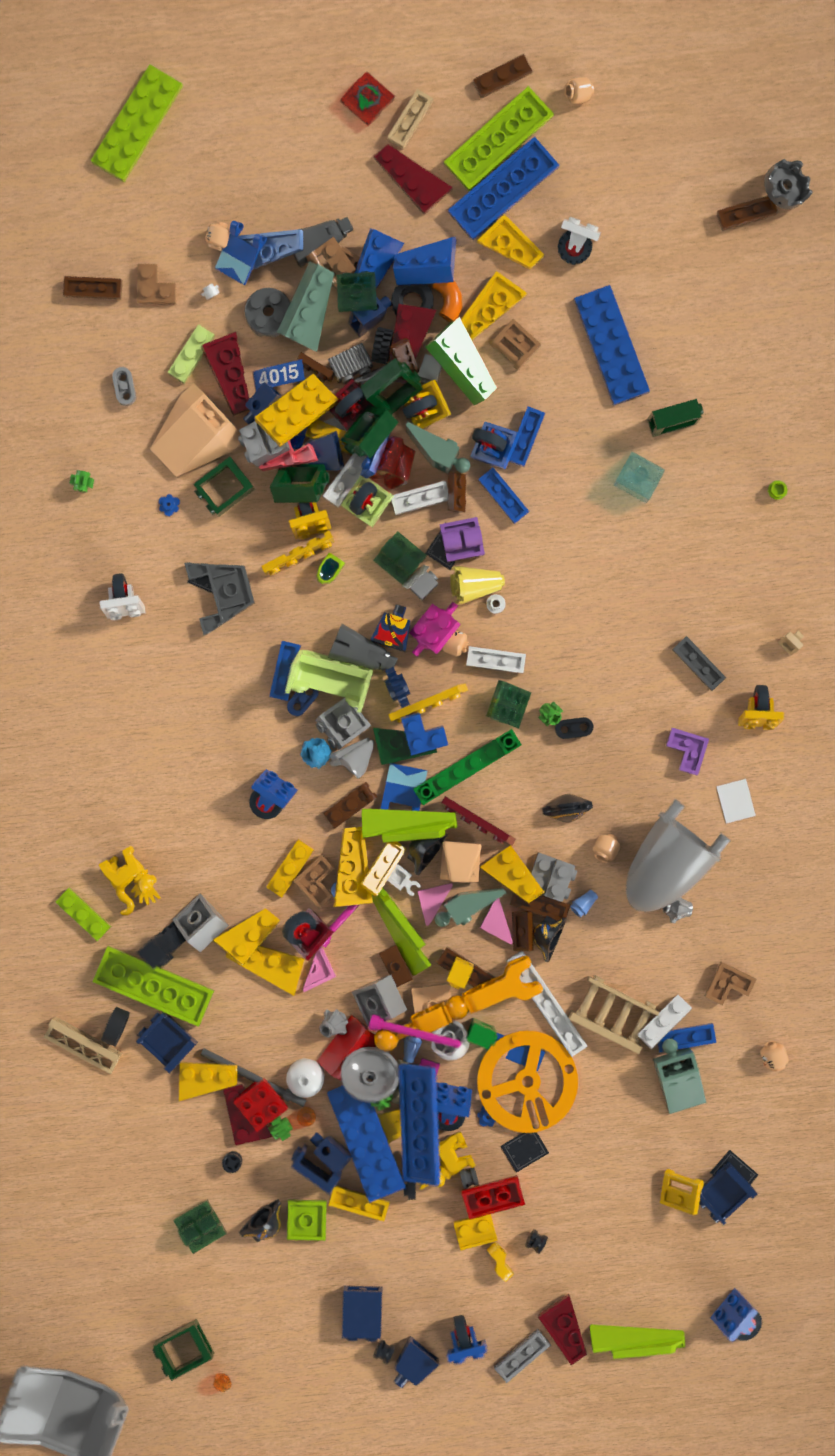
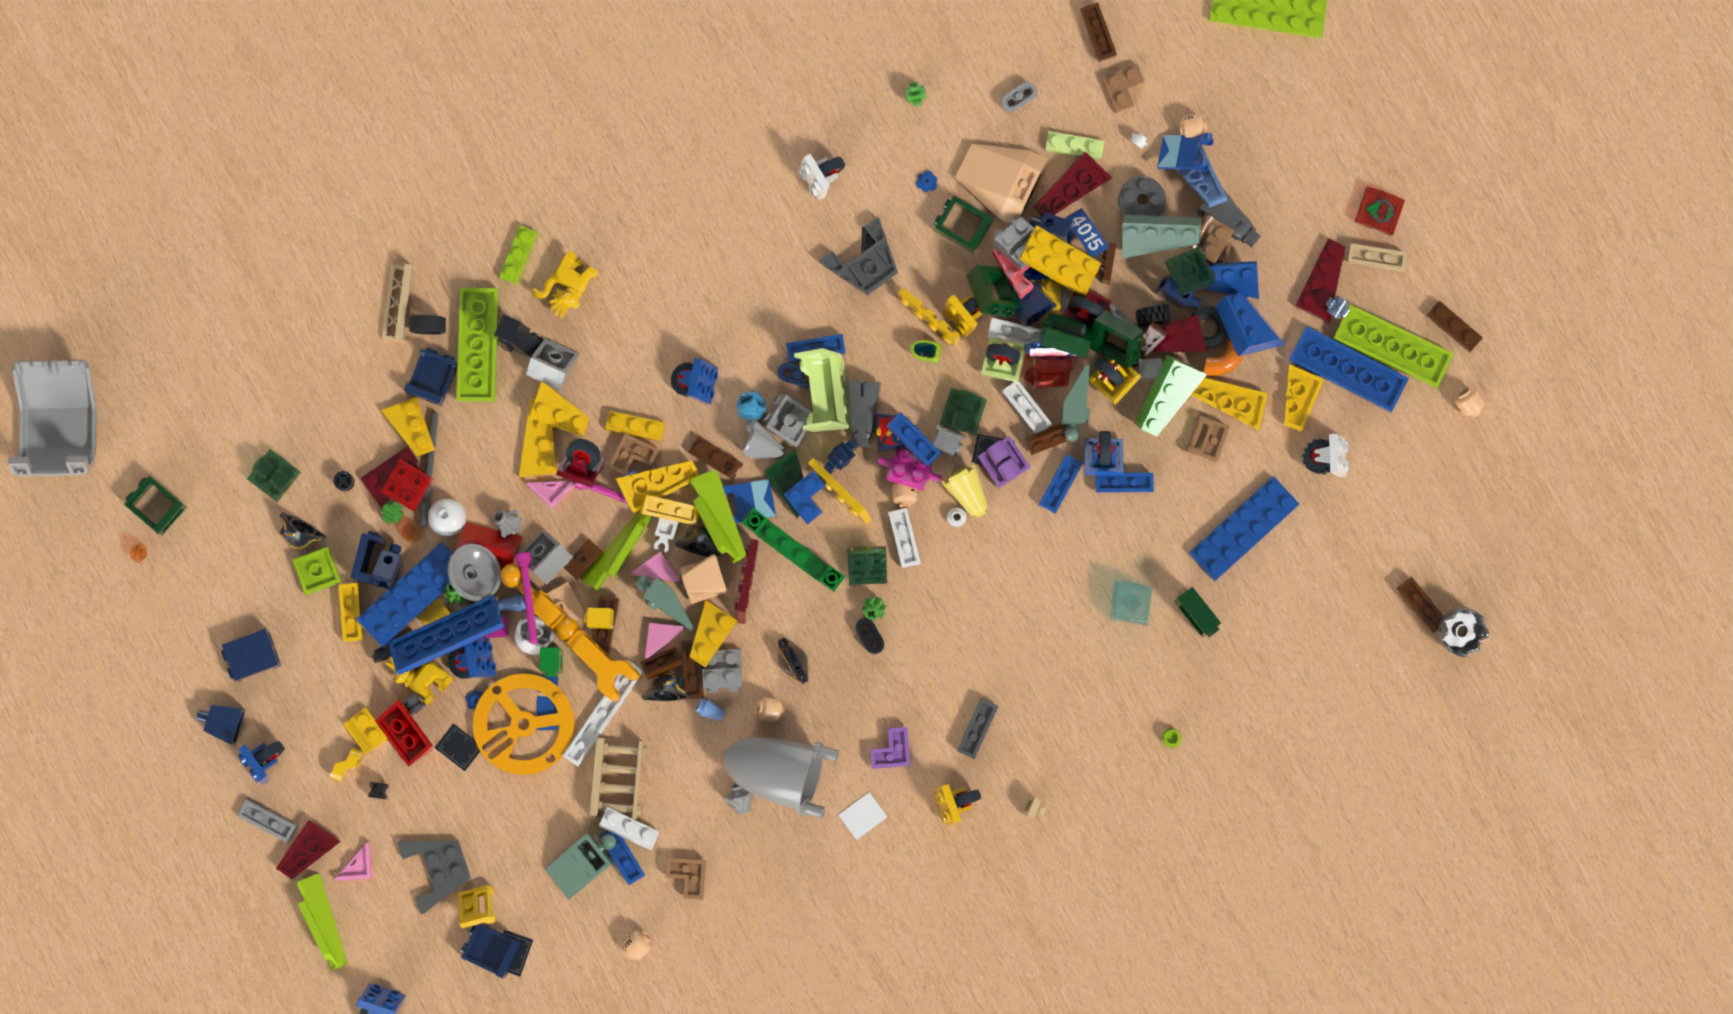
camera: 70 degrees right, 5 degrees down
(350, 363) = (1125, 294): light grey brick -> none
(384, 1351) = (223, 690): black wheel -> none
(409, 613) = (913, 439): none -> blue plate
(442, 172) = (1337, 307): none -> sand blue gear
(599, 1286) = (359, 866): none -> bright pink tile
(629, 1205) = (445, 866): none -> dark grey wing

